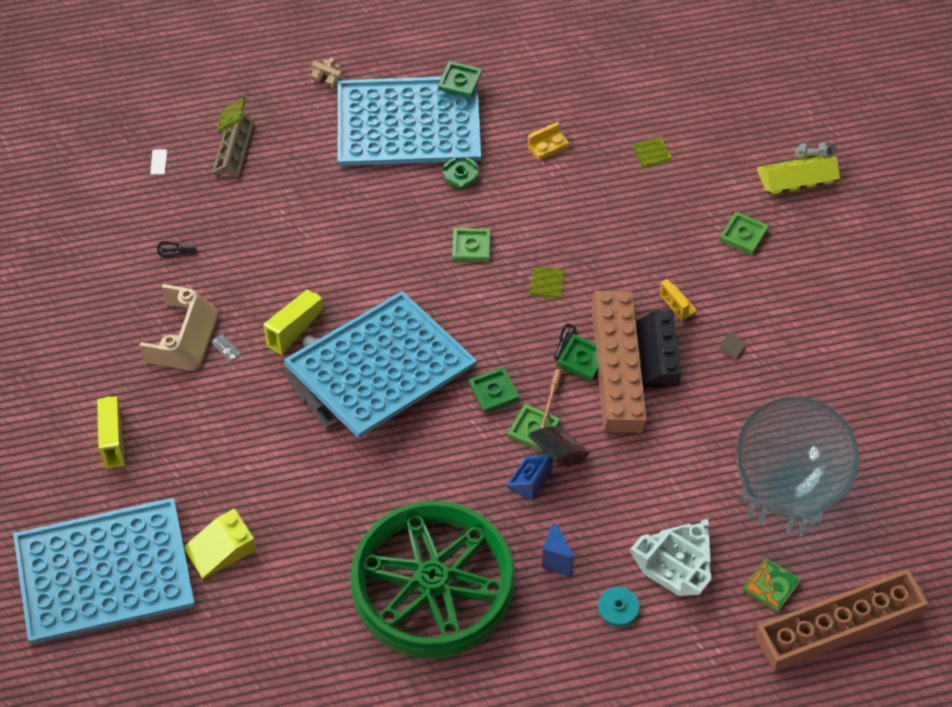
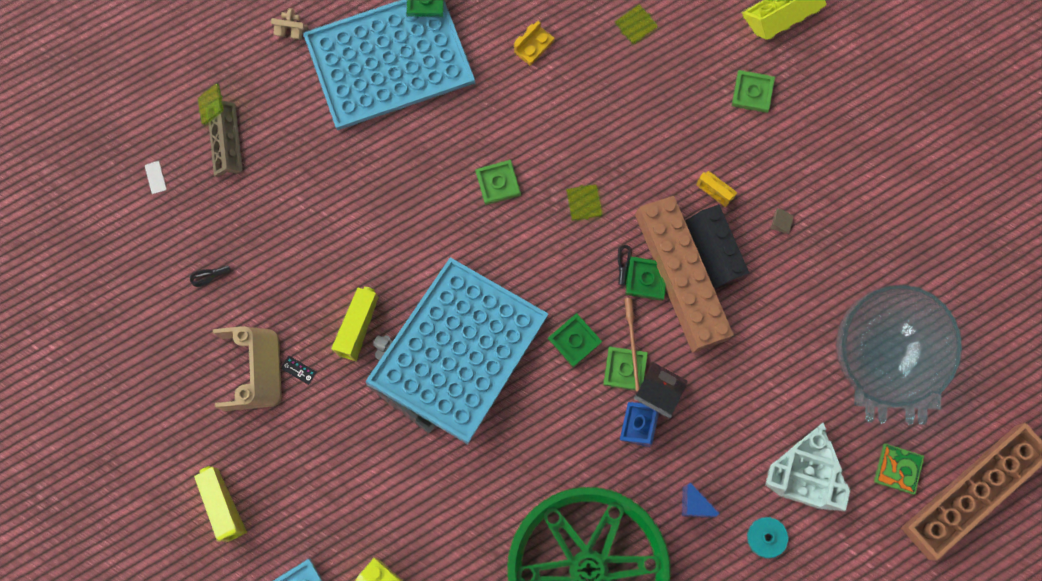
camera: 15 degrees left, 20 degrees up
(460, 172) = (460, 95): green plate -> none

